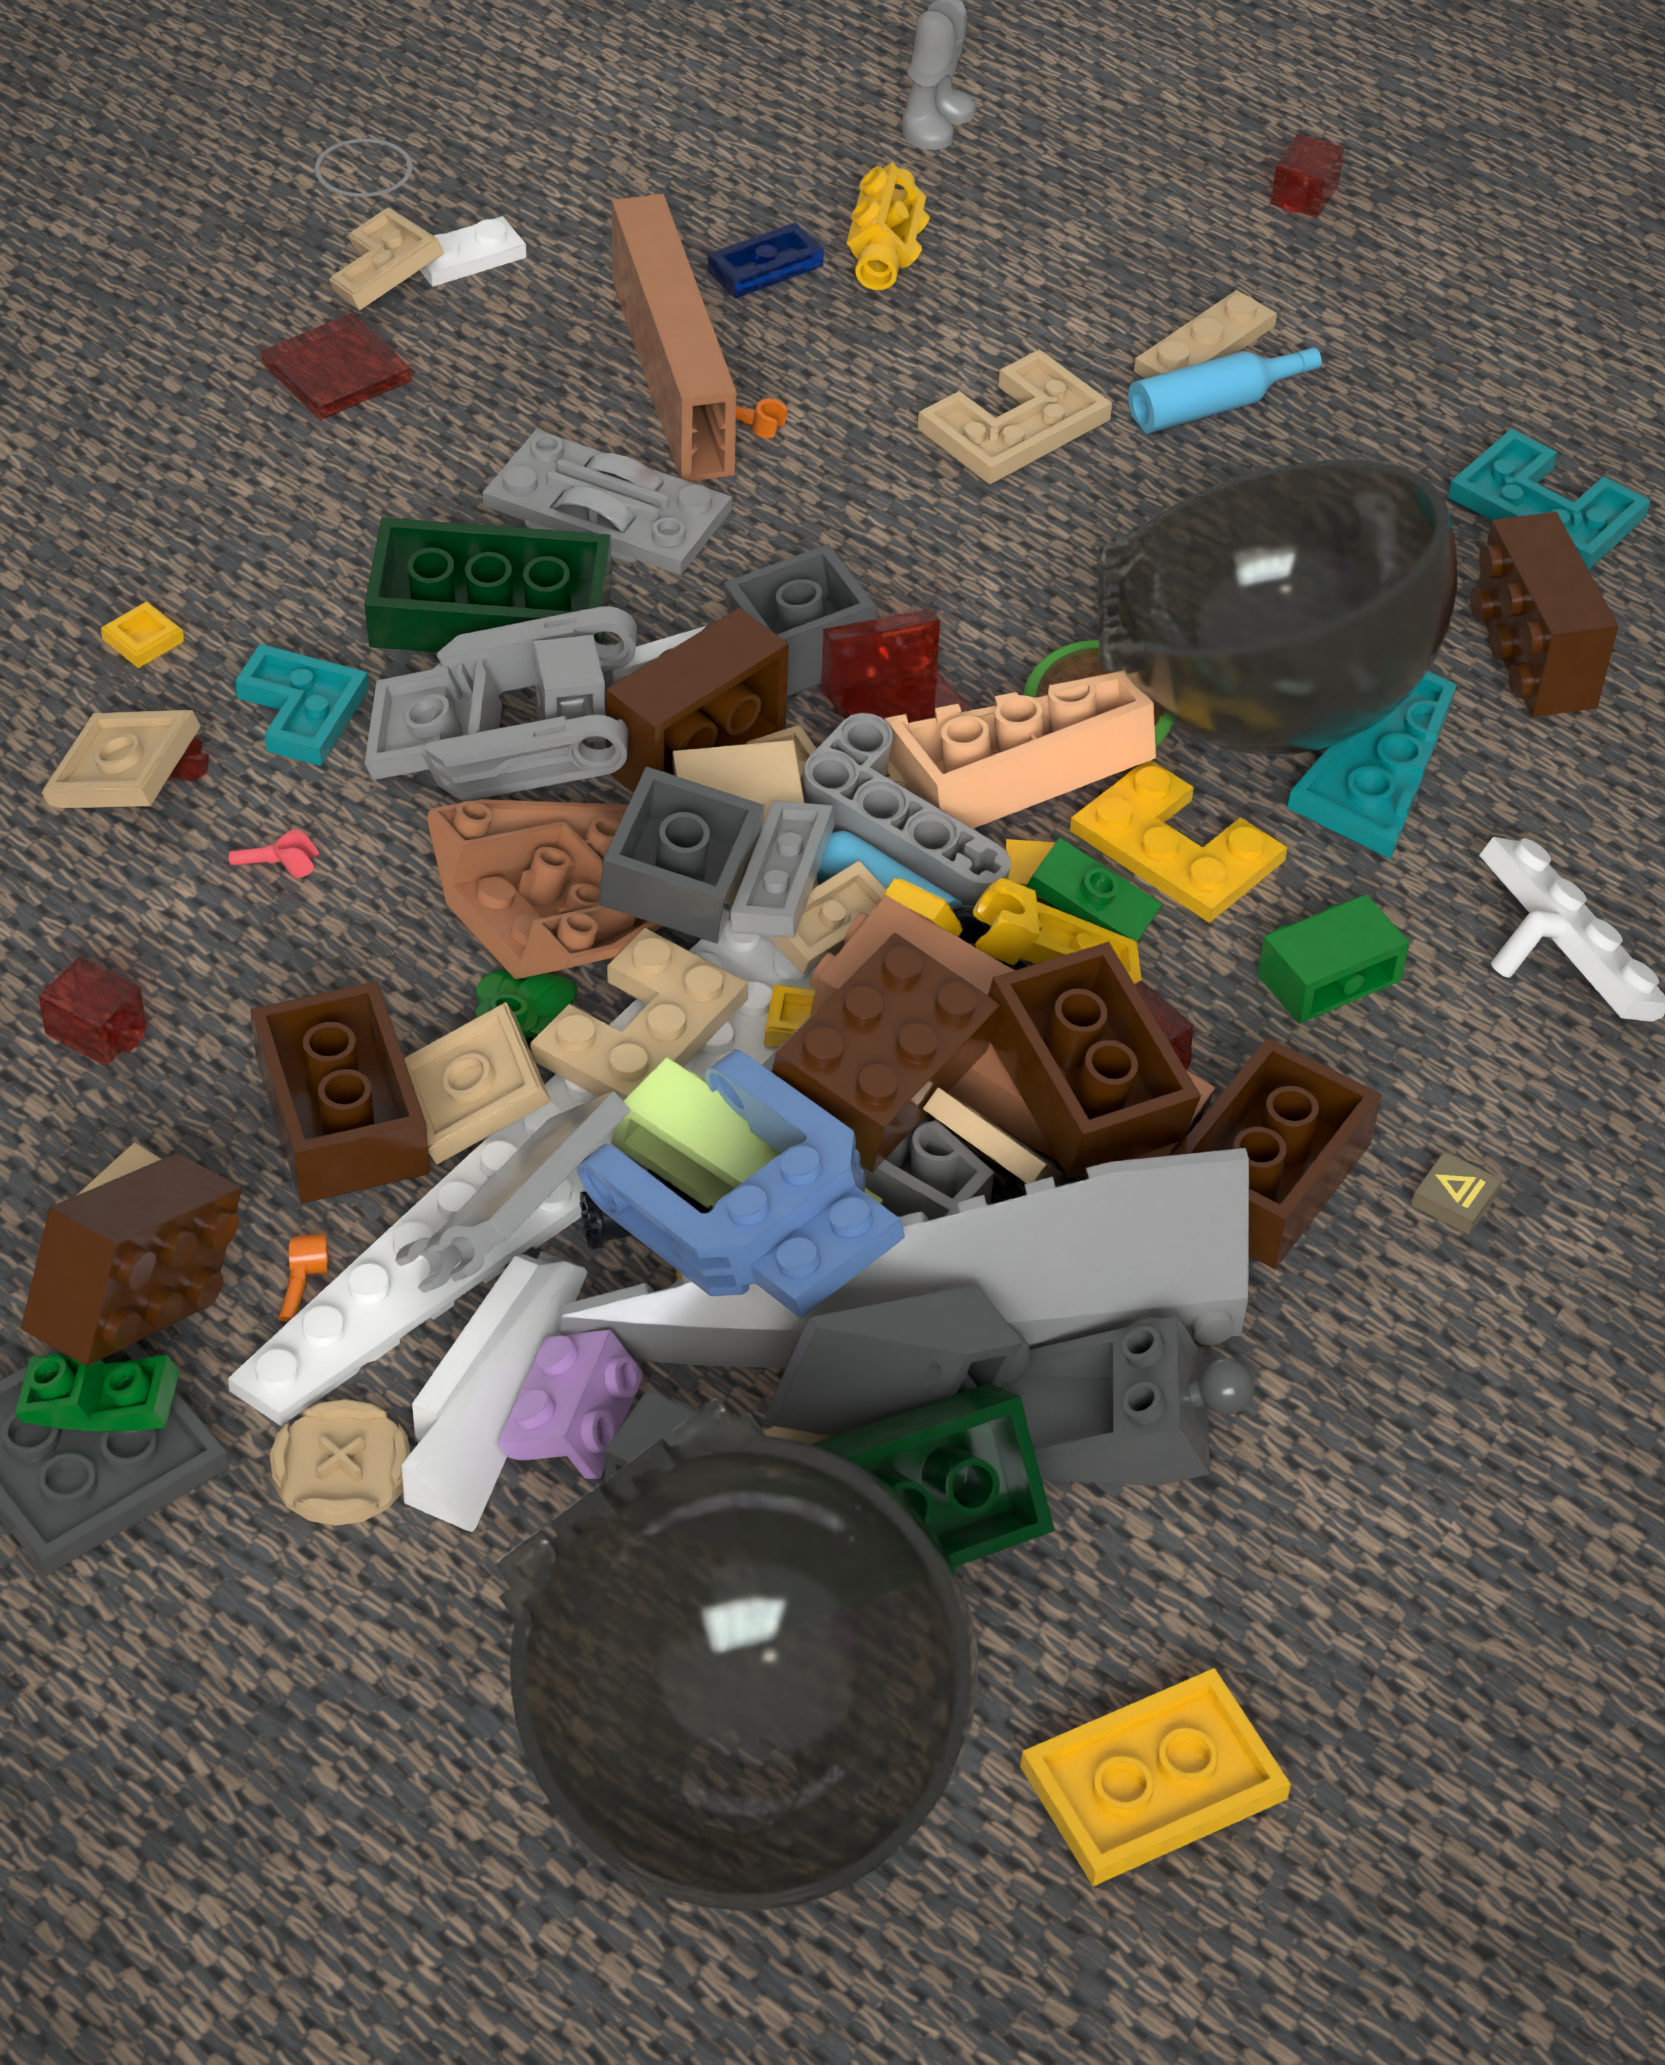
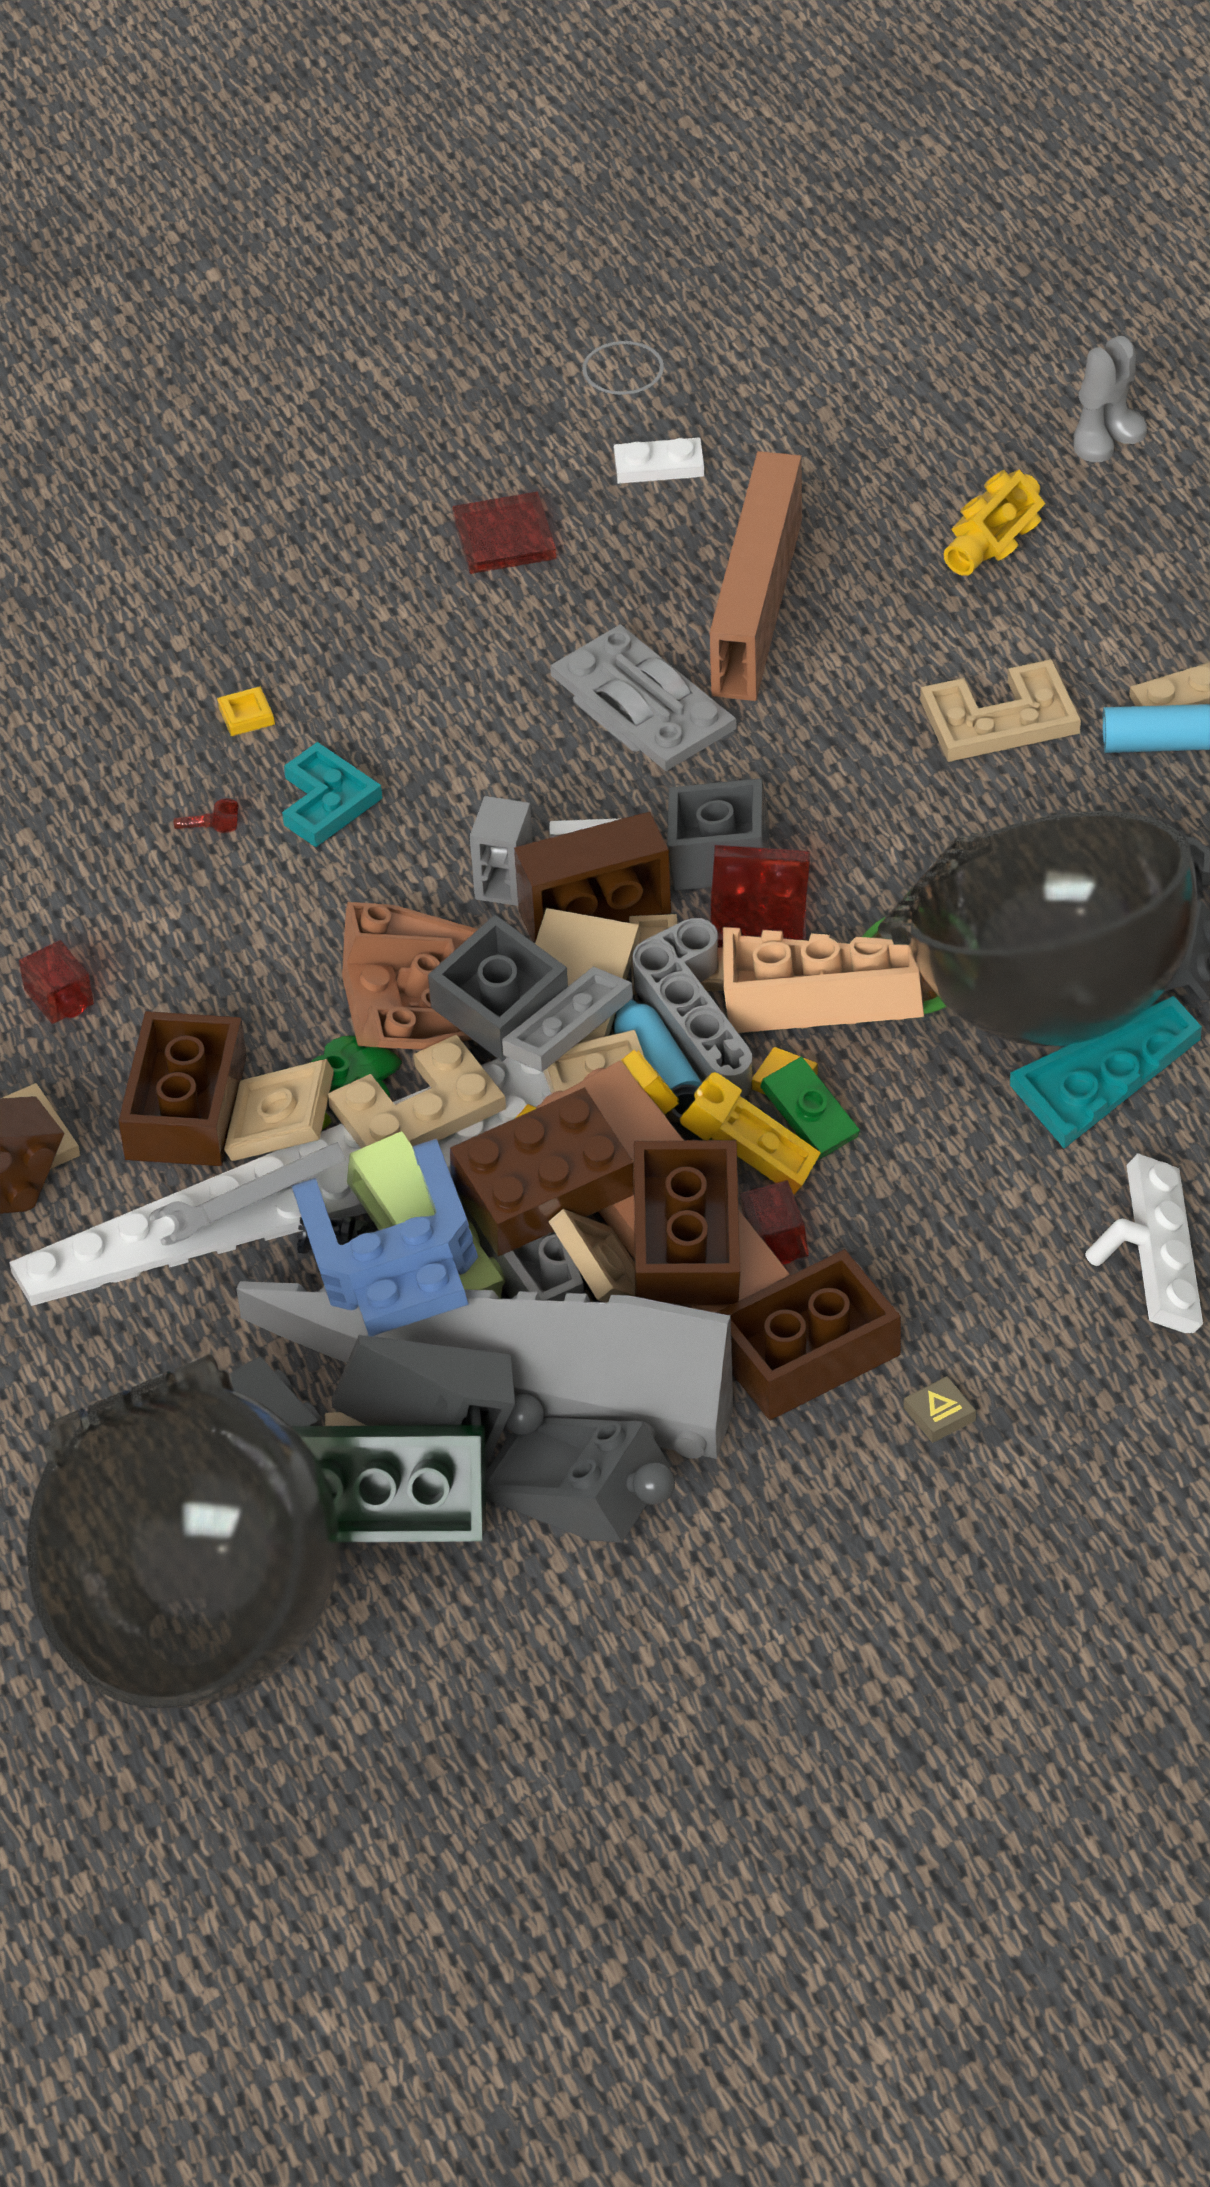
camera: 30 degrees right, 0 degrees up
(121, 759) = (174, 803): tan tile -> none
(291, 849) = (255, 905): coral hand -> none
(306, 1256) = (104, 1196): orange hand -> none
(339, 1462) = (53, 1342): tan tile -> none
(390, 254) = (598, 448): tan tile -> none
(452, 713) = (419, 835): light grey plate -> none
(468, 578) = (502, 745): dark green brick -> none
(476, 1386) = (174, 1317): white wedge -> none
(573, 1401) = (231, 1336): lavender bracket -> none
(764, 418) = (798, 656): orange hand -> none
(765, 260) = (884, 526): clear blue plate -> none
(1131, 830) = (904, 1119): yellow plate -> none
(1154, 1776) = (456, 1723): yellow plate -> none
(1332, 958) = (957, 1209): green brick -> none

